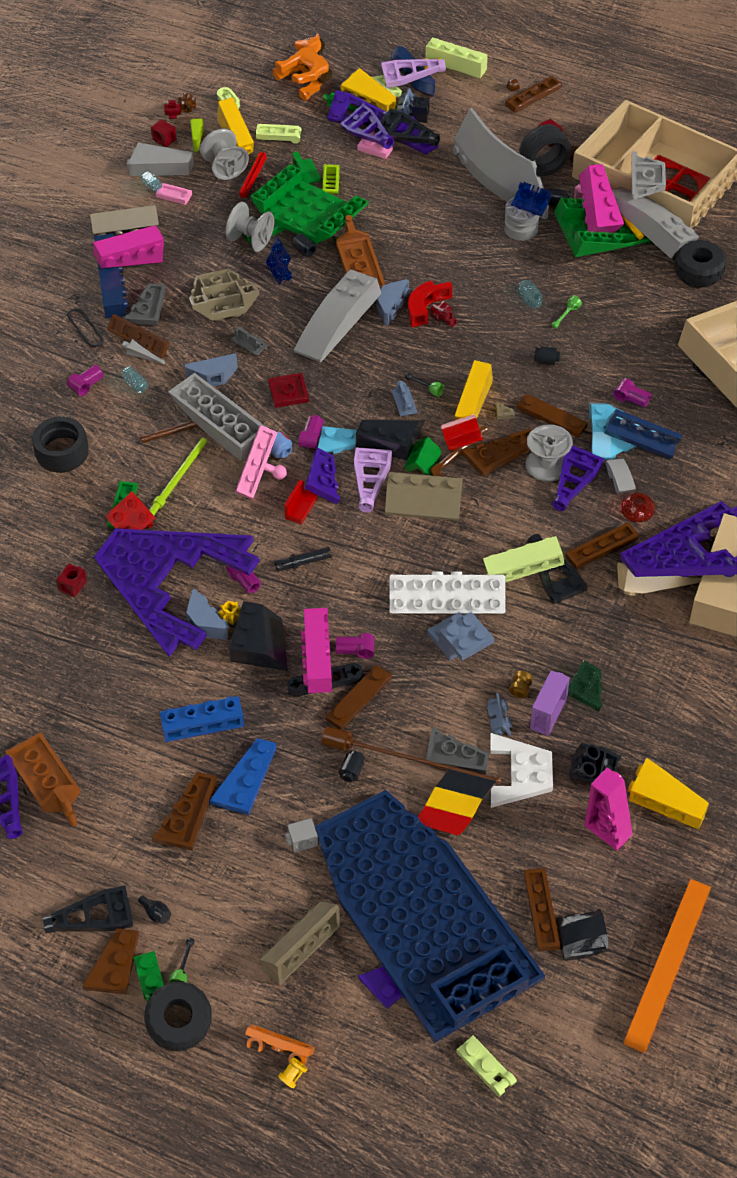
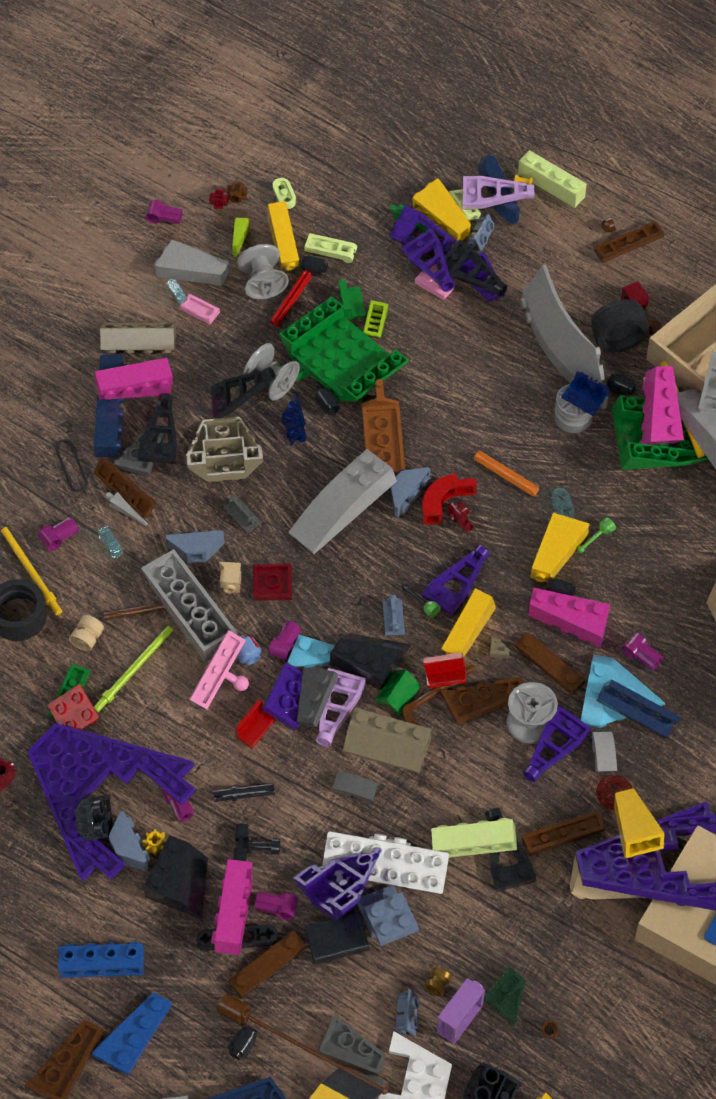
camera: 10 degrees right, 5 degrees up
(89, 432) = (50, 598): none -> yellow bar
(121, 126) = (159, 212): none -> magenta piece
(128, 453) = (86, 633): none -> tan wheel
(161, 303) = (160, 452): none -> black plate
(163, 133) = (203, 228): dark red brick -> none
(170, 596) = (94, 817): none -> black slope
(208, 252) = (221, 393): none -> black plate
(250, 390) = (230, 577): none -> tan window
(269, 146) = (314, 264): none -> black brick
(308, 61) = (384, 160): orange animal -> none
(315, 601) = (245, 843): none -> black bar
(349, 469) = (314, 695): none -> dark grey wing
(404, 537) = (354, 785): none -> dark grey slope
(410, 618) = (339, 884): none -> dark purple wedge
(418, 664) = (336, 938): none -> black piece
(421, 109) = (495, 243): black brick -> none
(451, 381) = (445, 598): none -> dark purple plate
(475, 277) = (506, 473): none -> orange axle
(535, 323) = (558, 545): none -> yellow slope
(561, 373) = (571, 614): none -> dark pink wedge
(636, 703) = (554, 1026): none -> reddish brown hinge
(668, 523) = (636, 825): none -> yellow slope

